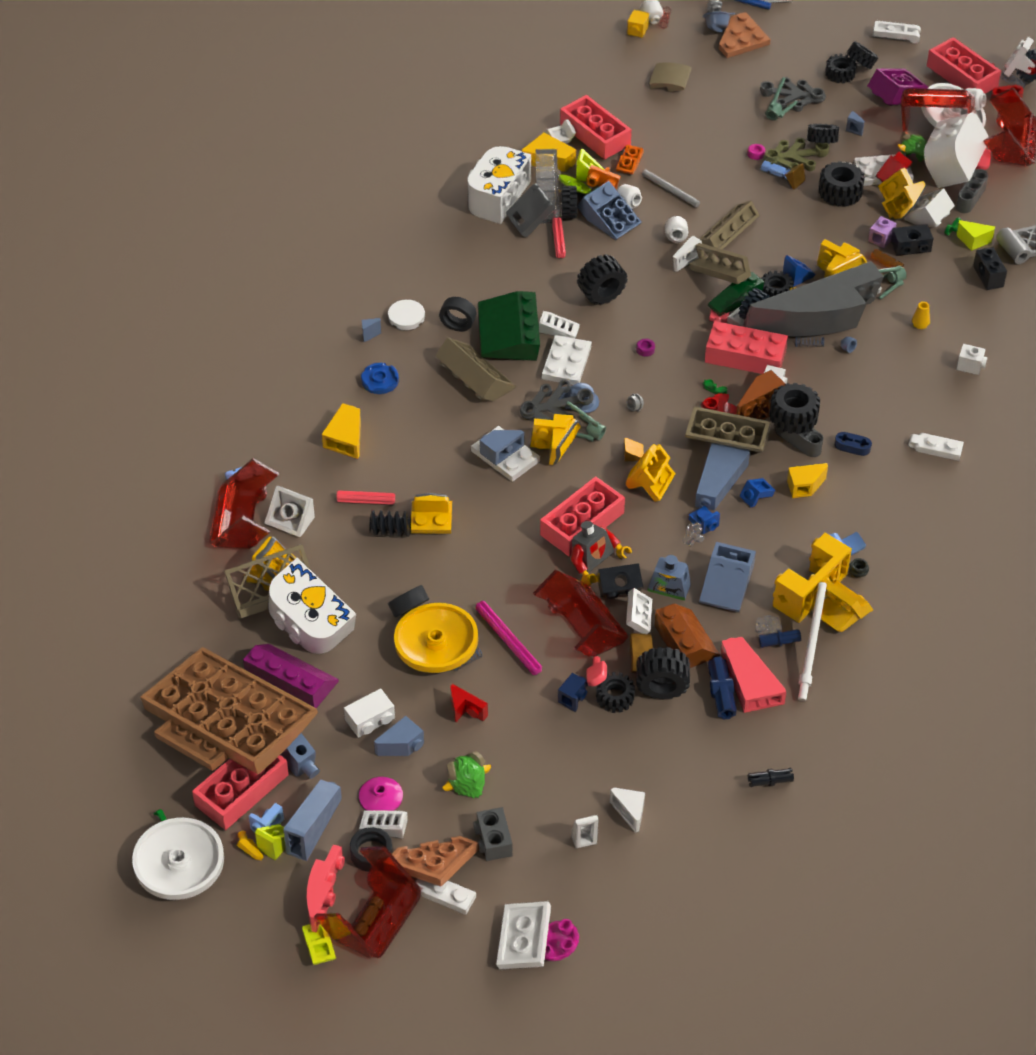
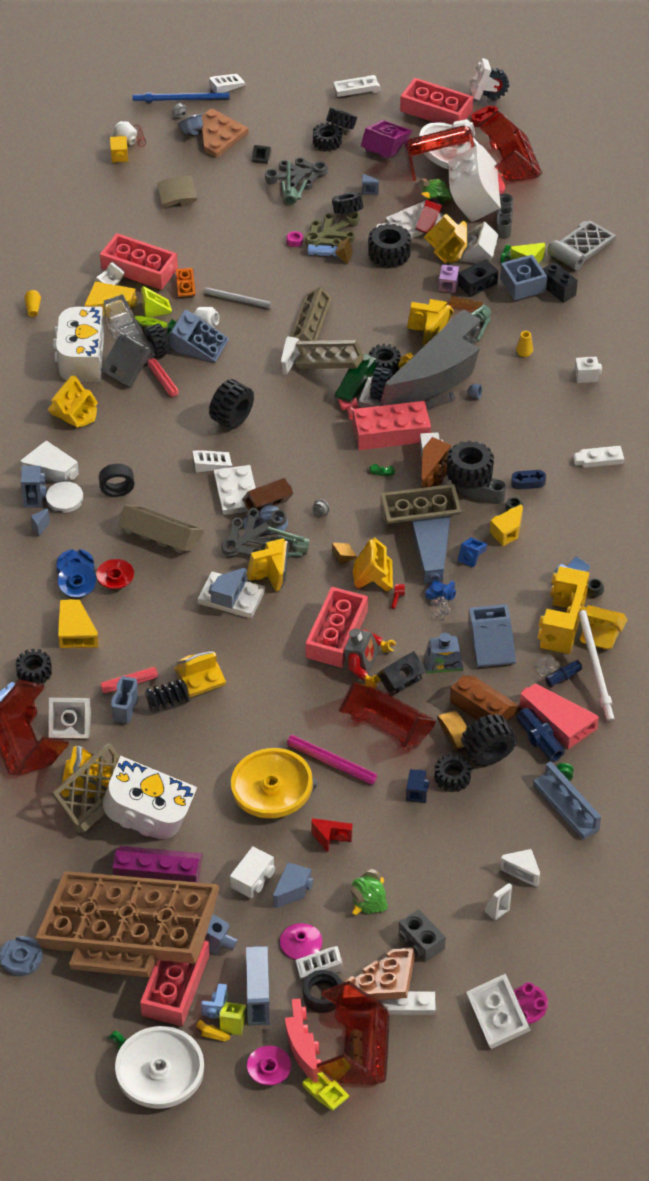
camera: 25 degrees left, 0 degrees up
(122, 709) = (21, 956): none -> sand blue tile
(279, 890) = (265, 1058): none -> dark pink dish
(287, 447) = (34, 658): none -> black tyre
(347, 513) = (124, 699): none -> sand blue brick
(370, 384) = (73, 573): none -> blue dish
(378, 294) = (32, 486): none -> sand blue brick
(408, 280) = (53, 462): none -> white slope
(408, 397) = (115, 574): none -> red dish
(408, 601) = (229, 759): black tyre -> none
(461, 234) = (74, 404): none -> yellow piece
(479, 134) = (32, 302): none -> yellow cone
(509, 326) = (170, 475): dark green slope -> none
(592, 373) = (269, 494): none -> reddish brown brick
(597, 672) = (429, 761): coral piece -> none
(599, 176) = (172, 308): orange hips -> none
(639, 612) = (436, 694): white bracket -> none
(645, 347) = (300, 454): magenta tile -> none
(665, 503) = (399, 589): none -> red hand
(676, 229) = (266, 335): white head -> none
(711, 763) = (568, 801): none -> sand blue fence
(719, 403) = (395, 483): red plate -> none
(724, 732) = (566, 769): none -> green bush
(769, 66) = (261, 154): none -> pearl dark grey slope
(770, 777) = (623, 796): black pin -> none
(797, 270) = (394, 337): blue slope -> none
(824, 458) = (512, 503): none -> pearl dark grey plate
(956, 252) = (523, 277): none -> sand blue brick

